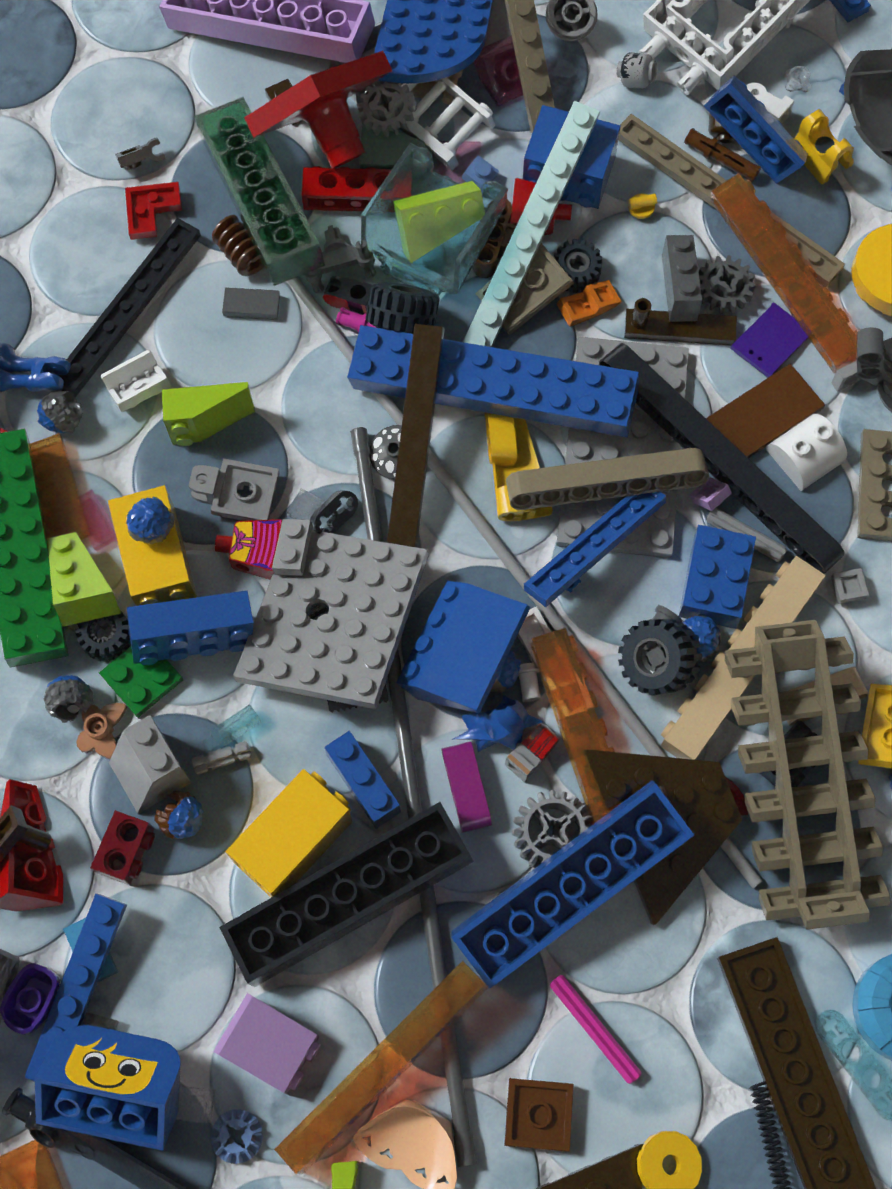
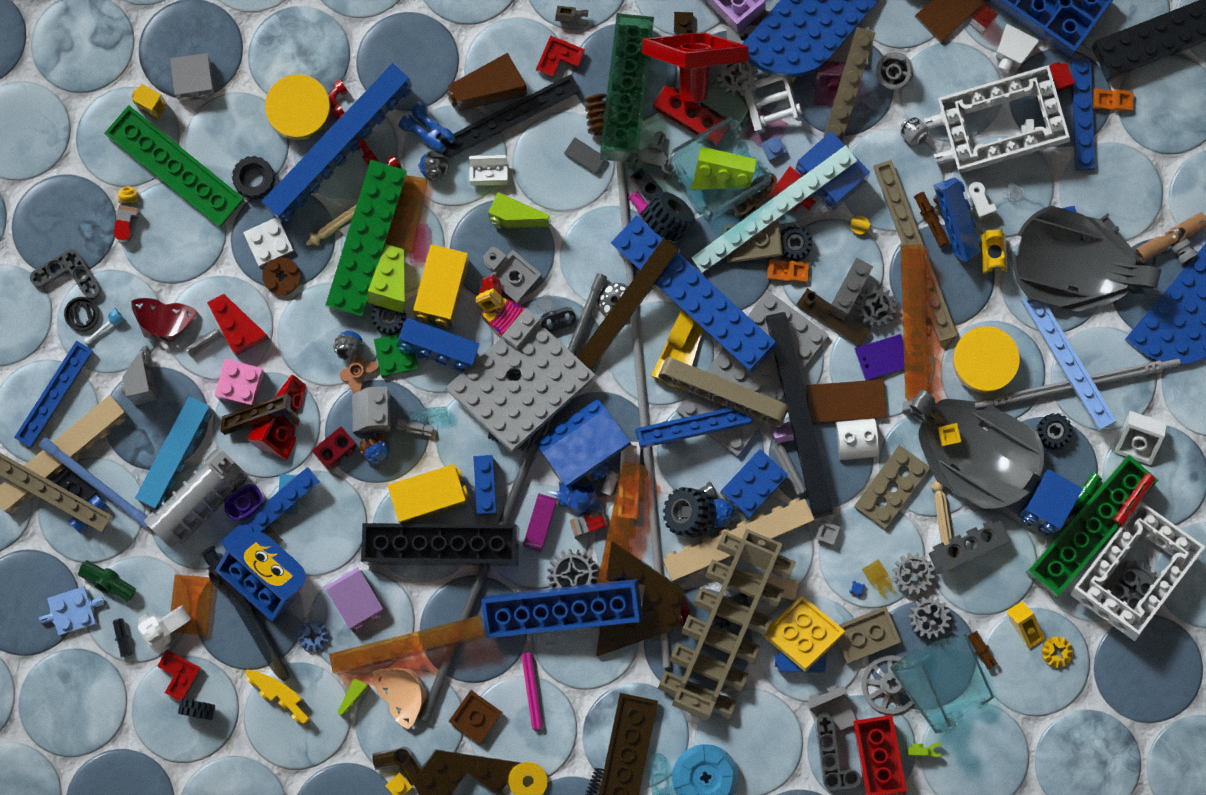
camera: 30 degrees right, 10 degrees up
(77, 279) = (488, 85): none -> reddish brown slope
(149, 521) = (446, 273): blue piece -> none
(221, 521) = (489, 291): none -> leg

